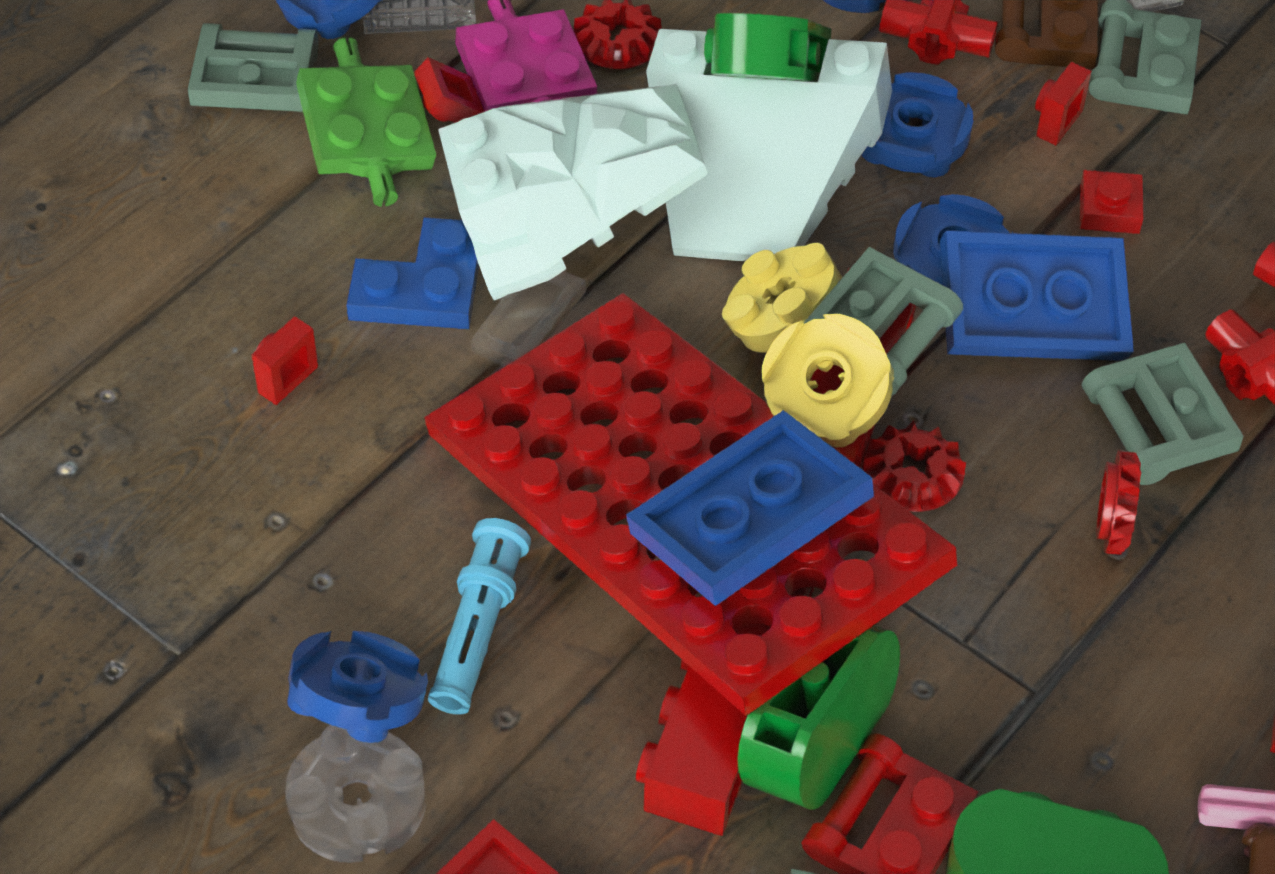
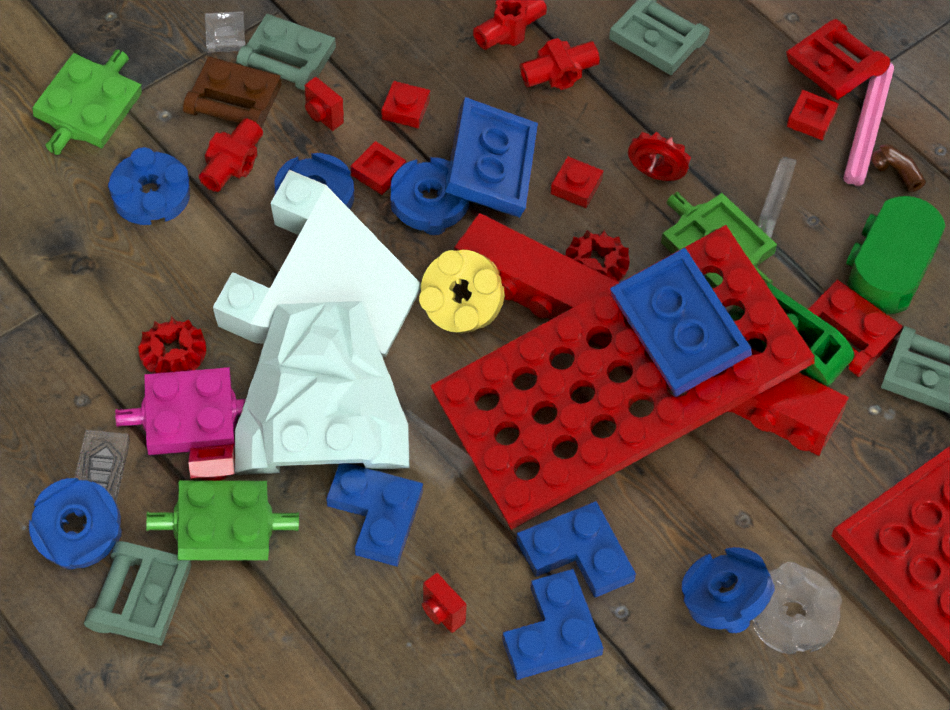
camera: 80 degrees left, 5 degrees up
(278, 513) = (562, 636): none -> blue plate
(421, 515) = (582, 538): none -> blue plate
(484, 592) = (657, 509): medium azure pin -> none
(766, 47) = (262, 241): green brick -> none
(819, 344) = (544, 272): light yellow plate -> none
(878, 292) = (506, 242): sand green plate -> none
(979, 177) = (377, 167): none -> red plate
(993, 616) = (707, 217): none -> bright green plate
(1049, 424) = (577, 182): none -> red plate
(1105, 682) = (776, 196): none -> clear tile
(1178, 401) = (583, 111): sand green plate -> none

